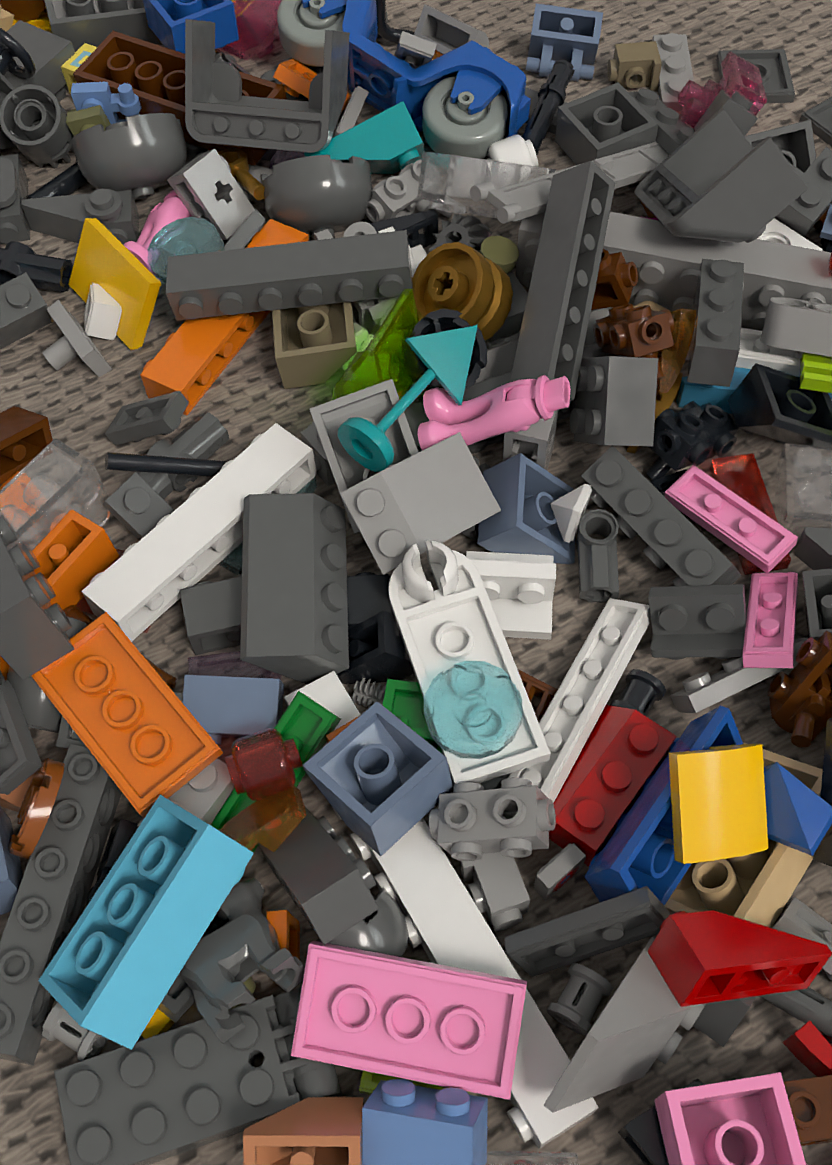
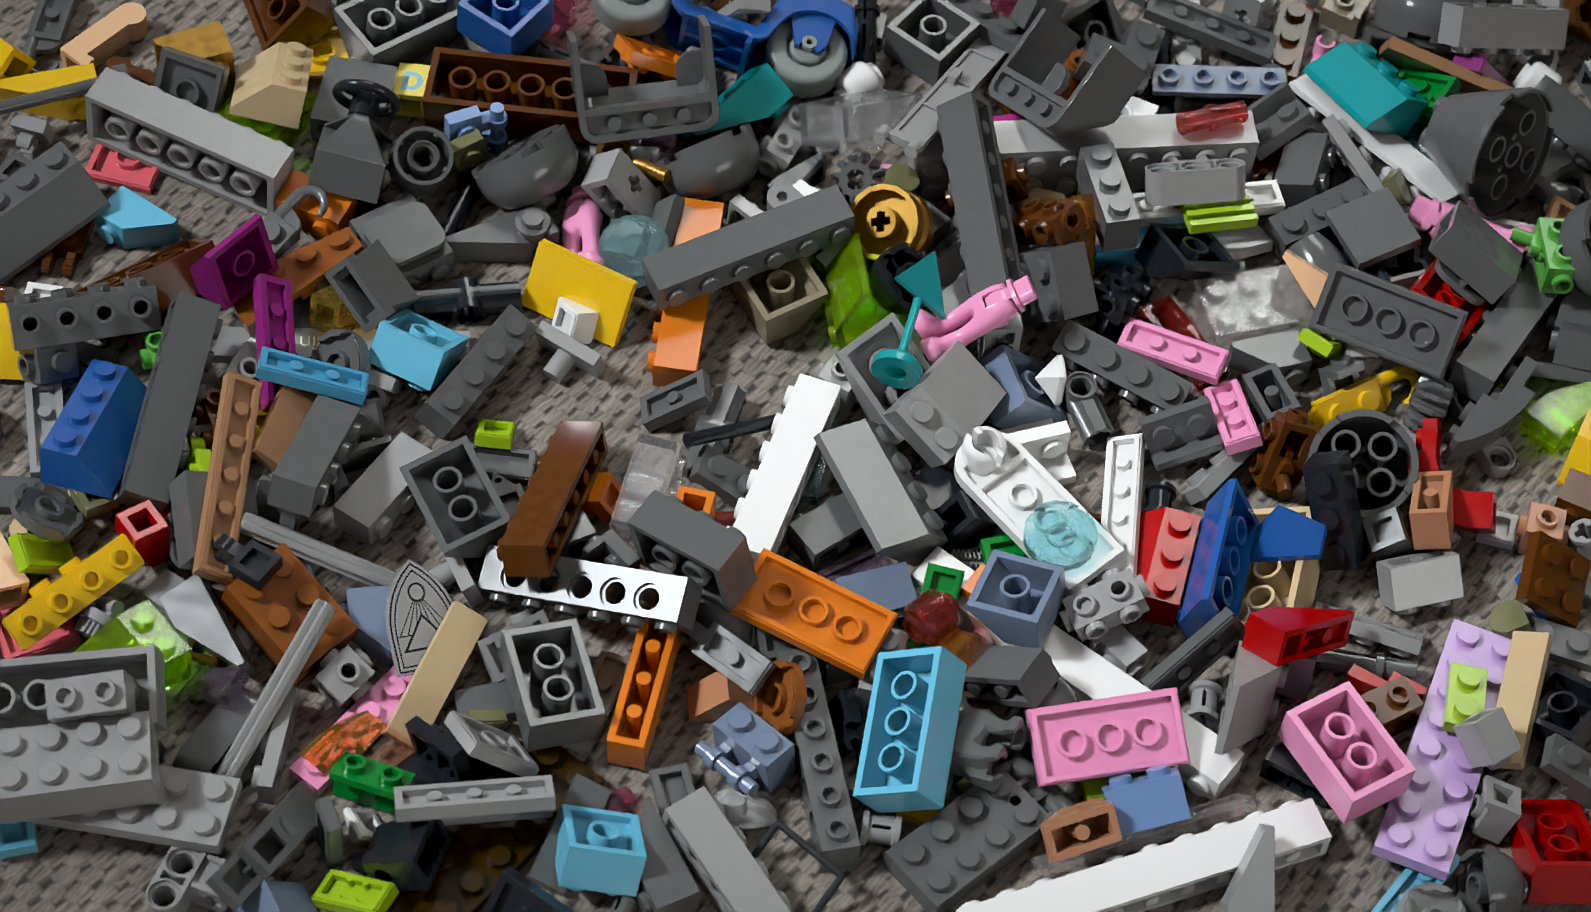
camera: 30 degrees left, 5 degrees down
(559, 871) = (1156, 630): light grey tile -> none
(718, 803) = (1251, 541): yellow slope -> none

